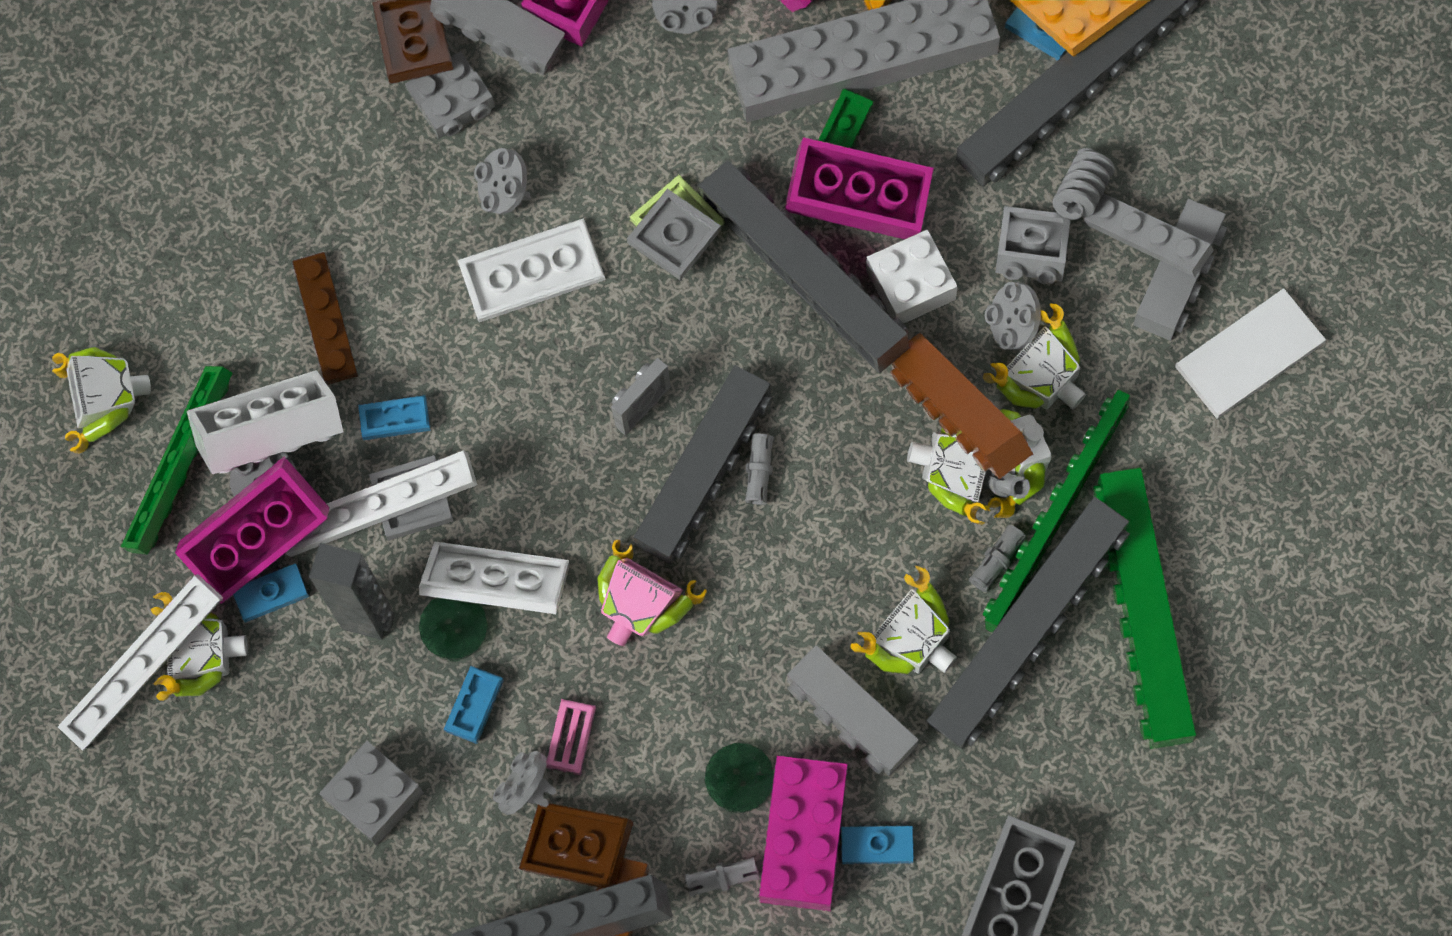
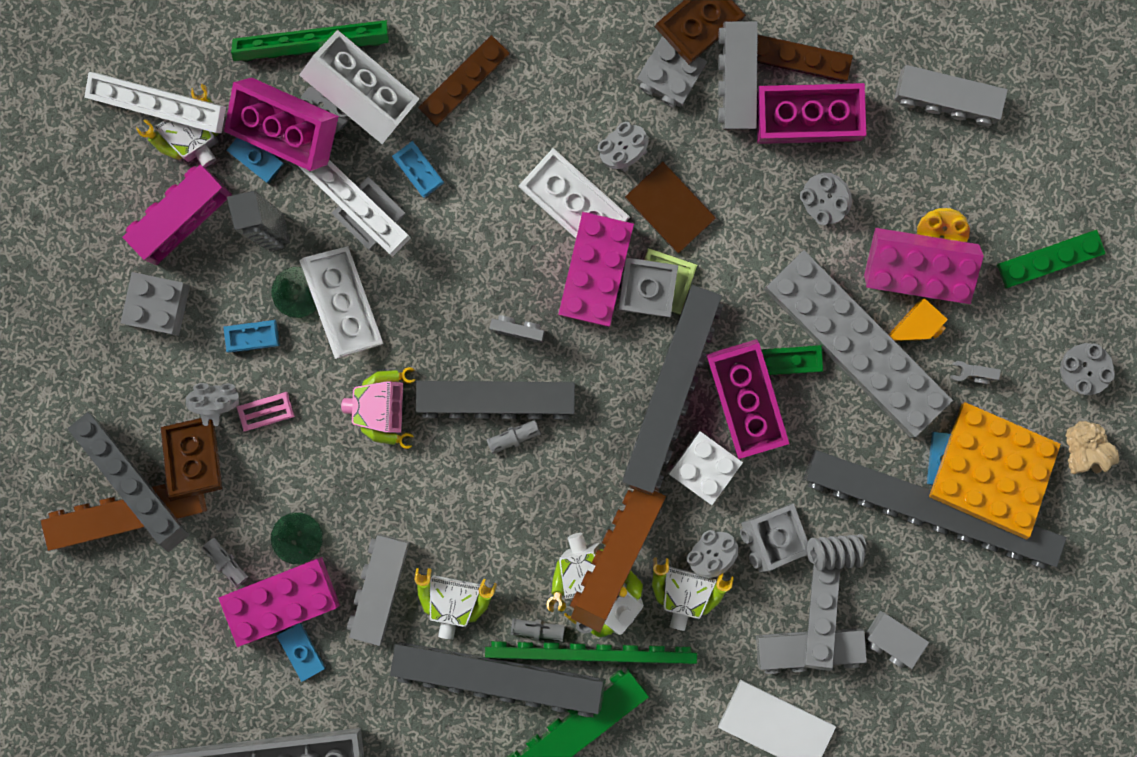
camera: 55 degrees right, 15 degrees up
(284, 707) = (176, 215): none -> dark pink brick
(598, 172) = (670, 207): none -> reddish brown tile
(621, 280) = (596, 269): none -> dark pink brick
(1218, 174) = (896, 640): none -> light grey brick

